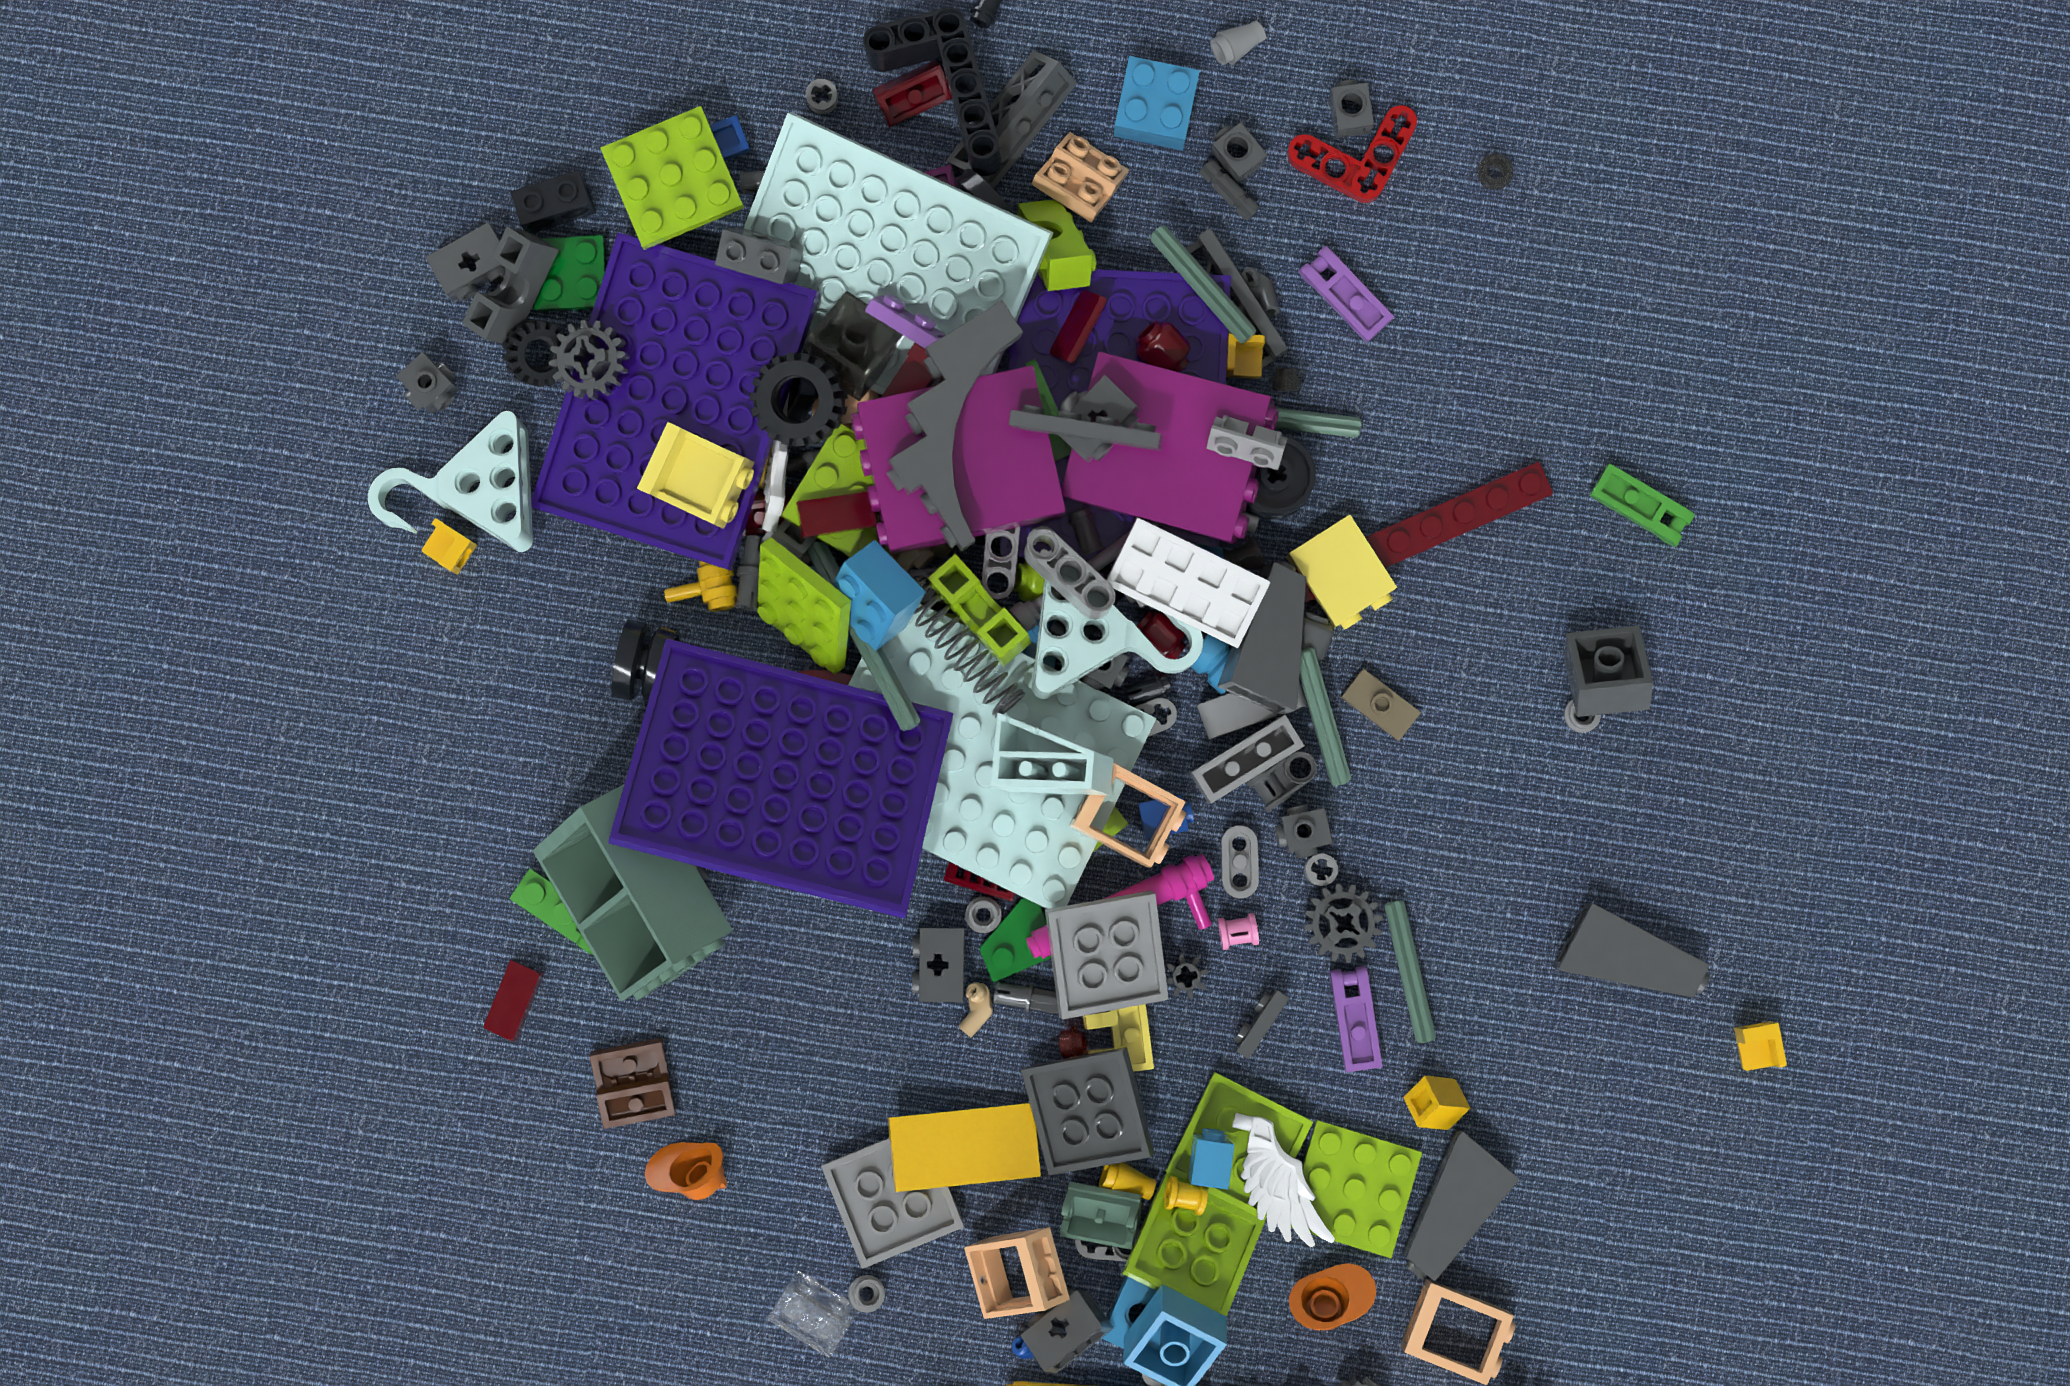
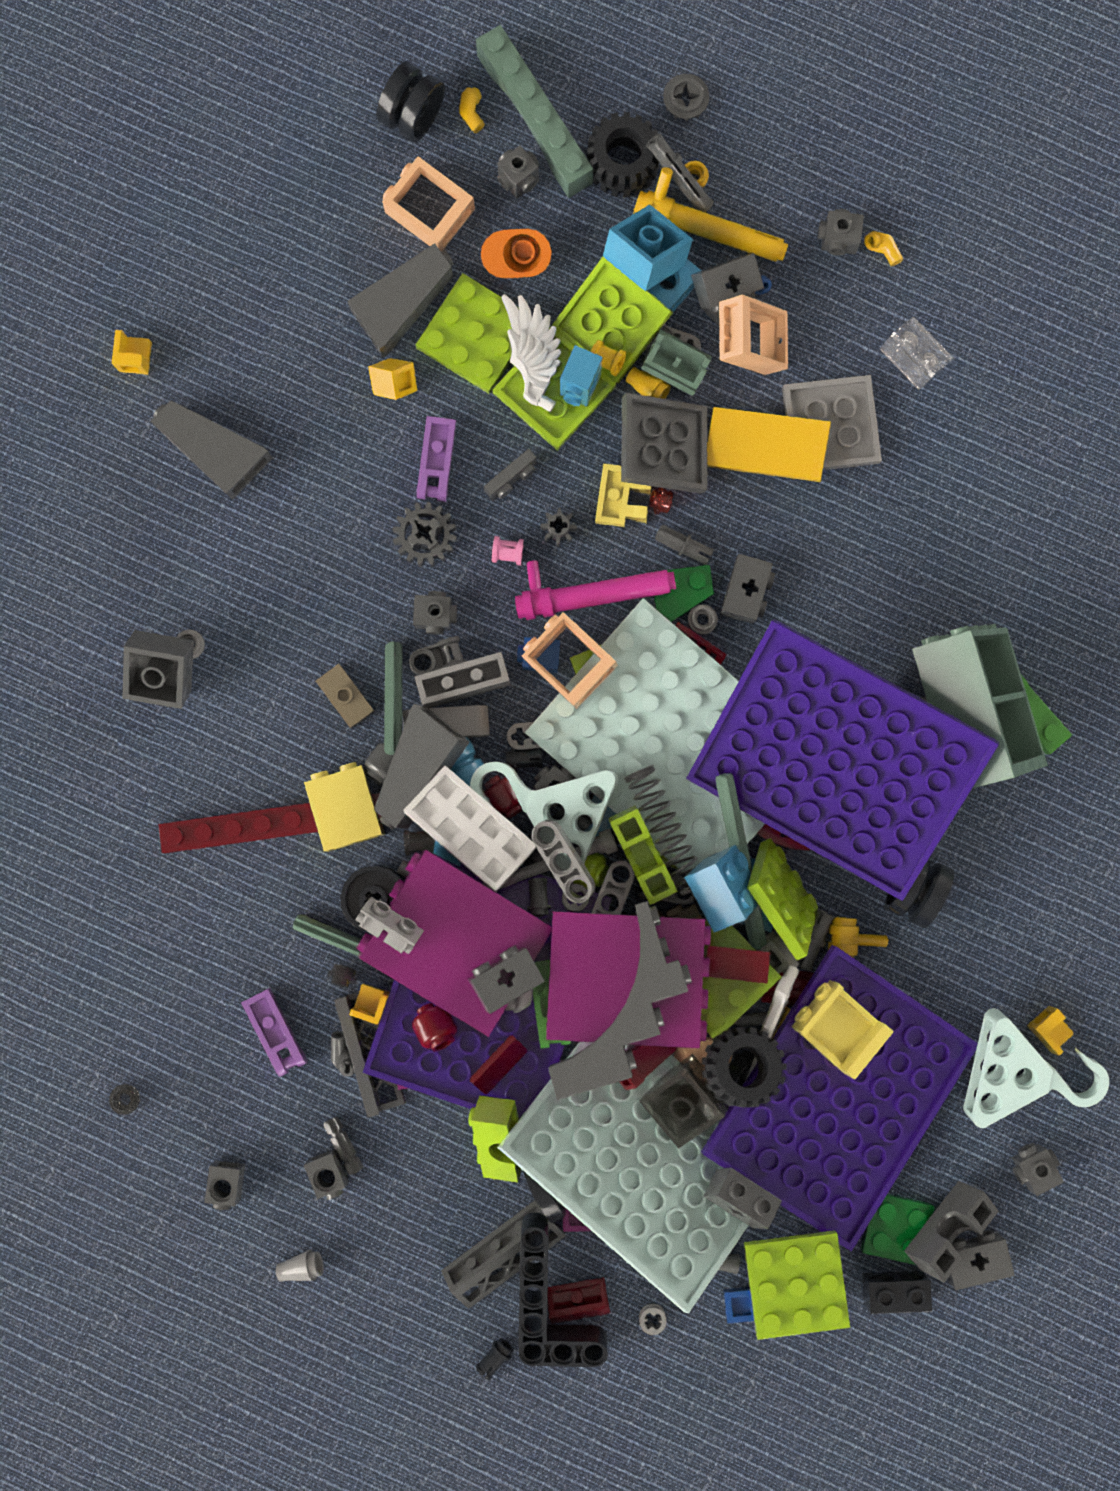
camera: 165 degrees left, 0 degrees up
(513, 1000) = (1088, 654): dark red slope -> none
(516, 350) = (946, 1187): black tyre -> none
(575, 359) = (905, 1164): dark grey gear -> none
(632, 1083) = (1010, 565): reddish brown slope -> none
(687, 1169) = (987, 486): orange piece -> none
(876, 1298) = (869, 348): light grey plate -> none
(892, 313) = (632, 1101): medium lavender plate -> none
(980, 1008) = (724, 548): tan arm -> none
(1046, 763) = (623, 717): light aqua wedge -> none
(1070, 425) = (529, 979): dark grey plate -> none
(1080, 176) = (460, 1190): light nougat slope -> none
(1106, 954) = (616, 557): light grey plate -> none
(1156, 103) = (381, 1235): dark azure brick -> none
(1203, 284) = (387, 1071): sand green axle -> none
(1239, 862) = (491, 604): light grey plate -> none
(1312, 876) = (426, 571): light grey bush -> none
(1356, 169) = (237, 1135): red beam -> none
(1410, 971) = (383, 484): sand green axle -> none
(1641, 504) = (91, 796): bright green plate -> none

